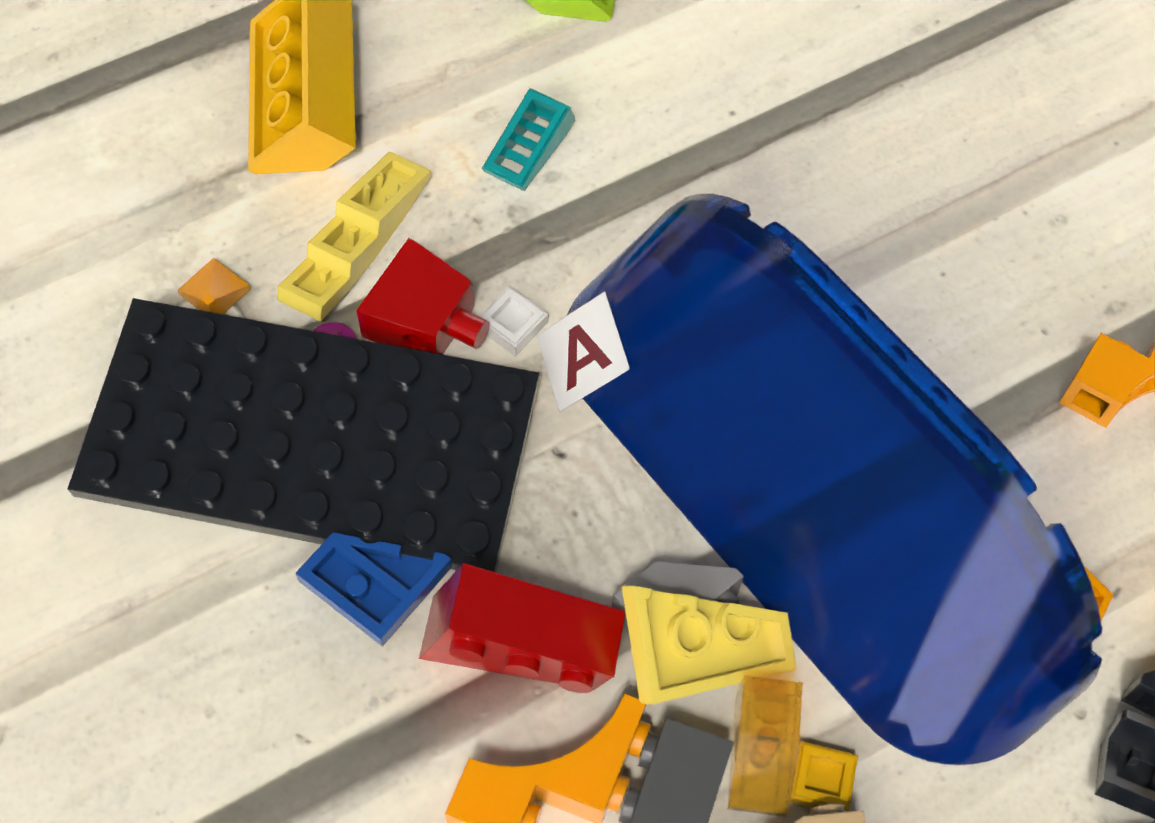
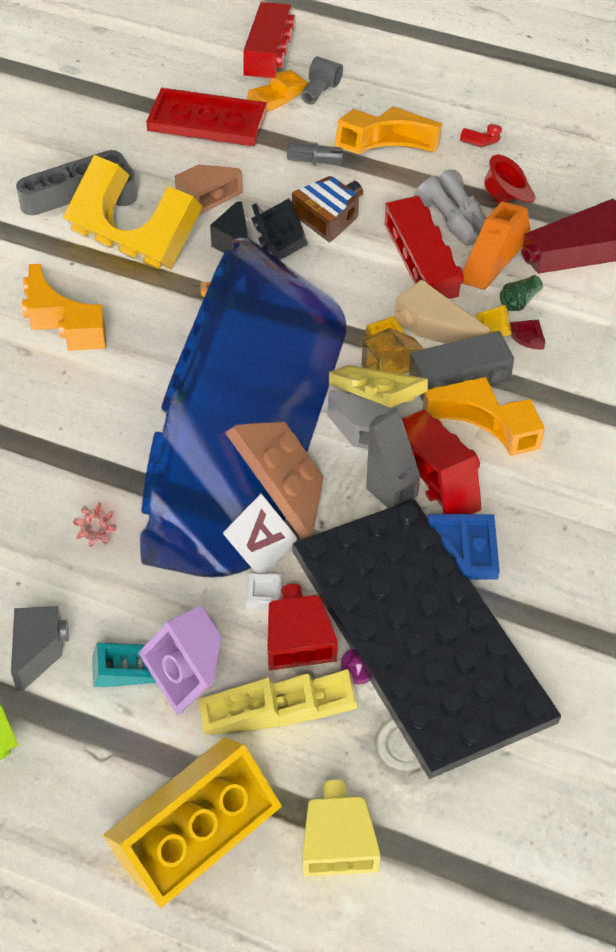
camera: 125 degrees left, 10 degrees down
(161, 182) = (339, 834): none -> light yellow torso
(214, 288) = (379, 753): light orange slope -> none
(475, 151) = (184, 657): none -> lavender slope
(550, 539) = (391, 463): none -> dark grey slope
(628, 68) = (36, 642): none -> dark grey slope
(651, 419) = (282, 469): none -> nougat wing
(747, 189) = (86, 528): none -> clear red gear

